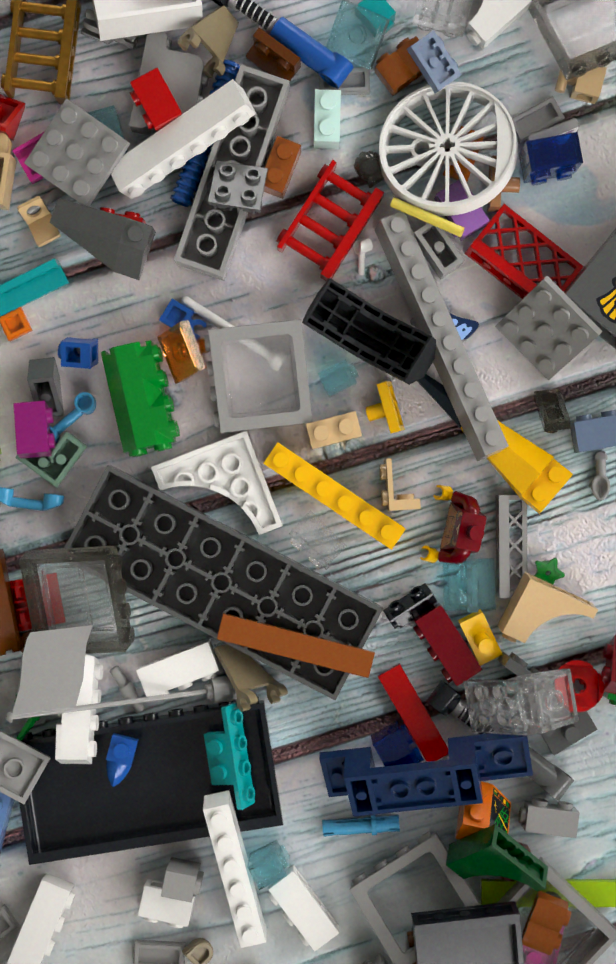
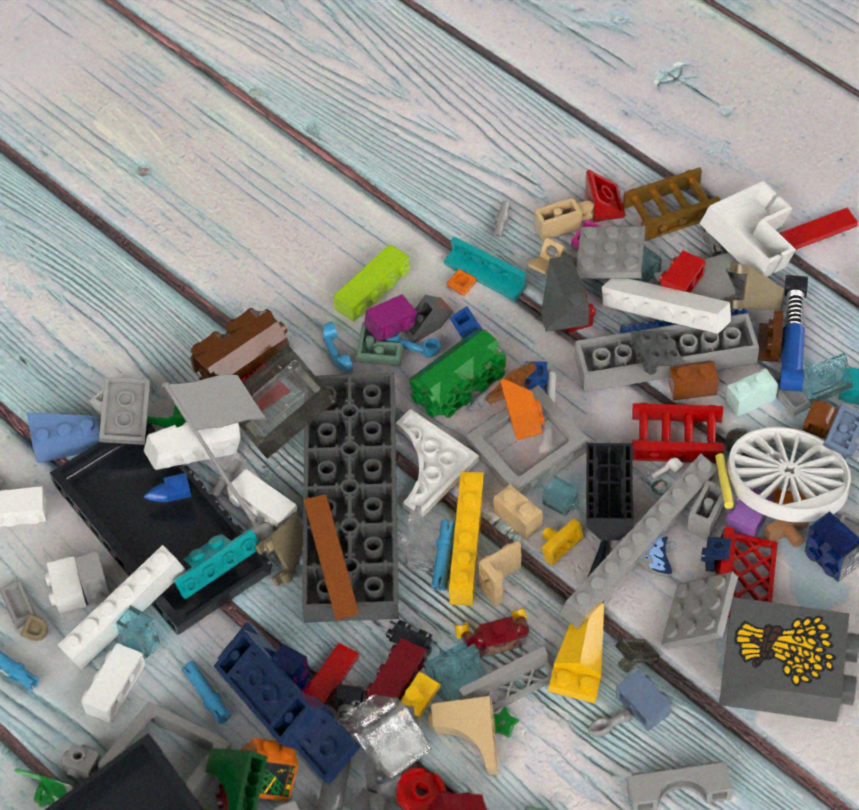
camera: 60 degrees right, 35 degrees down
(241, 370) = (523, 410): none -> orange slope
(341, 529) = (444, 546): none -> dark azure pin
(489, 270) = (716, 549): none -> dark blue bracket

